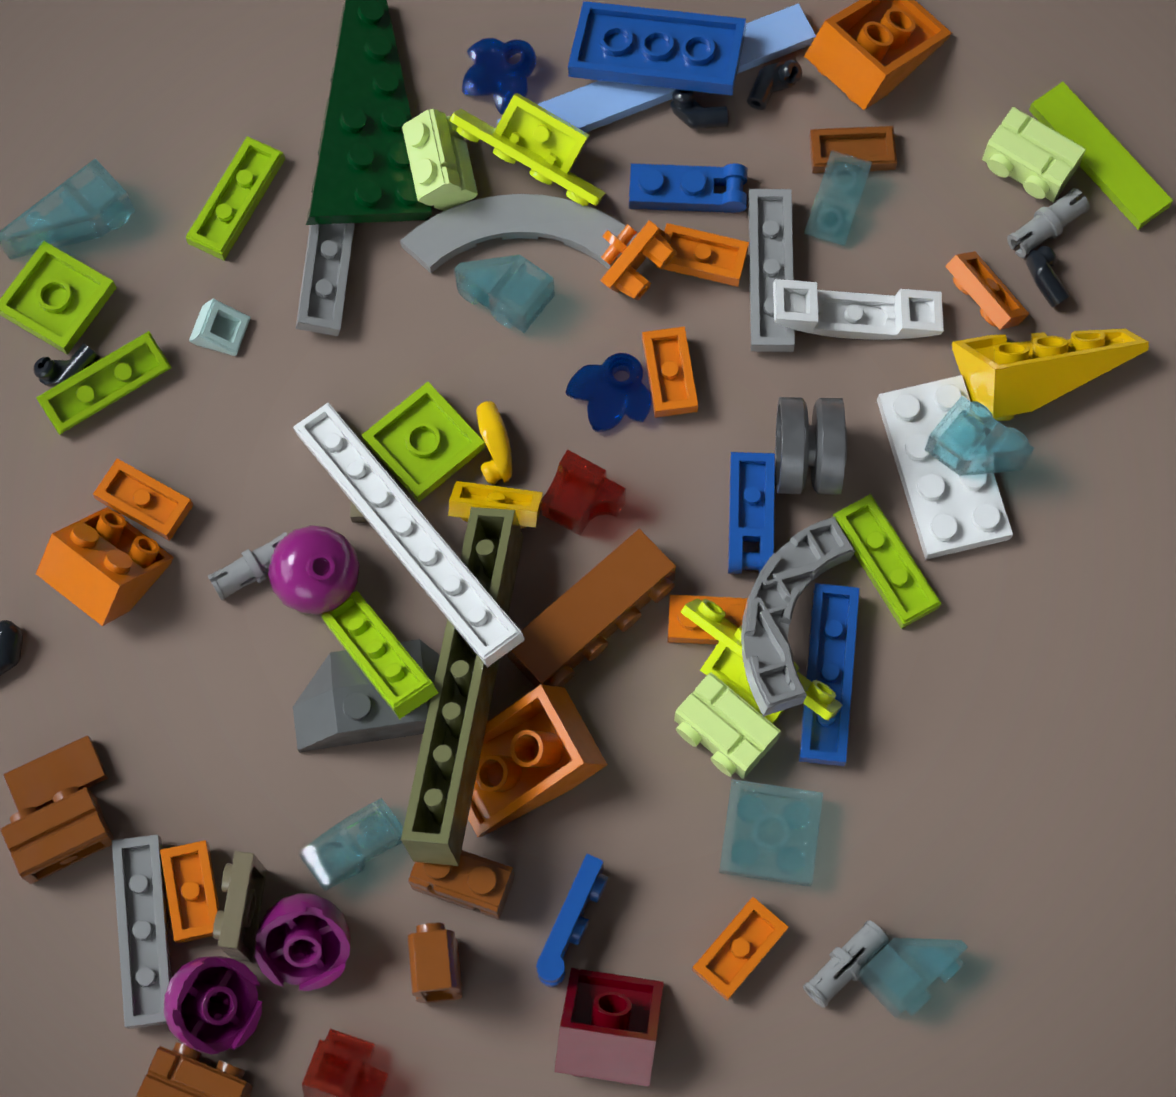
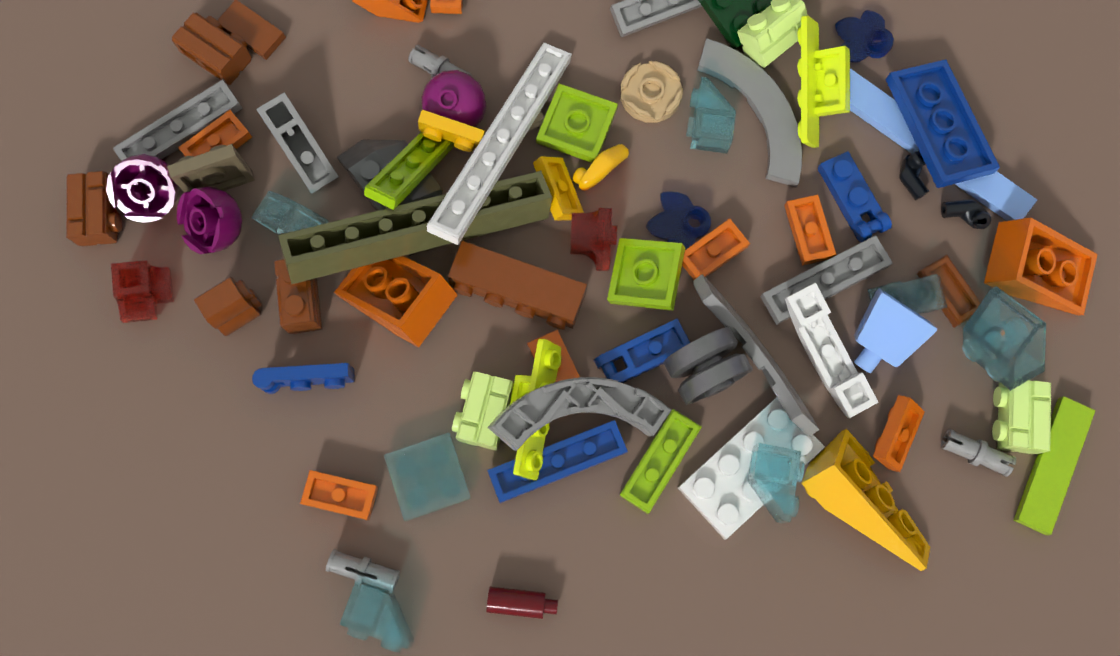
camera: 60 degrees right, 5 degrees up
(250, 786) = (297, 142): none -> light grey slope
(371, 576) = (439, 127): none -> yellow plate
(429, 338) = (651, 92): none -> tan tile
(609, 1027) = (247, 436): dark red slope -> none
(647, 244) = (779, 180): orange hips -> none
(659, 458) = (646, 273): none -> lime plate
(822, 387) = (758, 353): none -> light grey tile
(870, 235) = (890, 332): none -> light blue torso
(944, 123) = (1005, 339): none -> clear light blue slope
(972, 799) = (519, 603): none -> dark red cylinder
(1046, 280) = (933, 469): black arm -> none

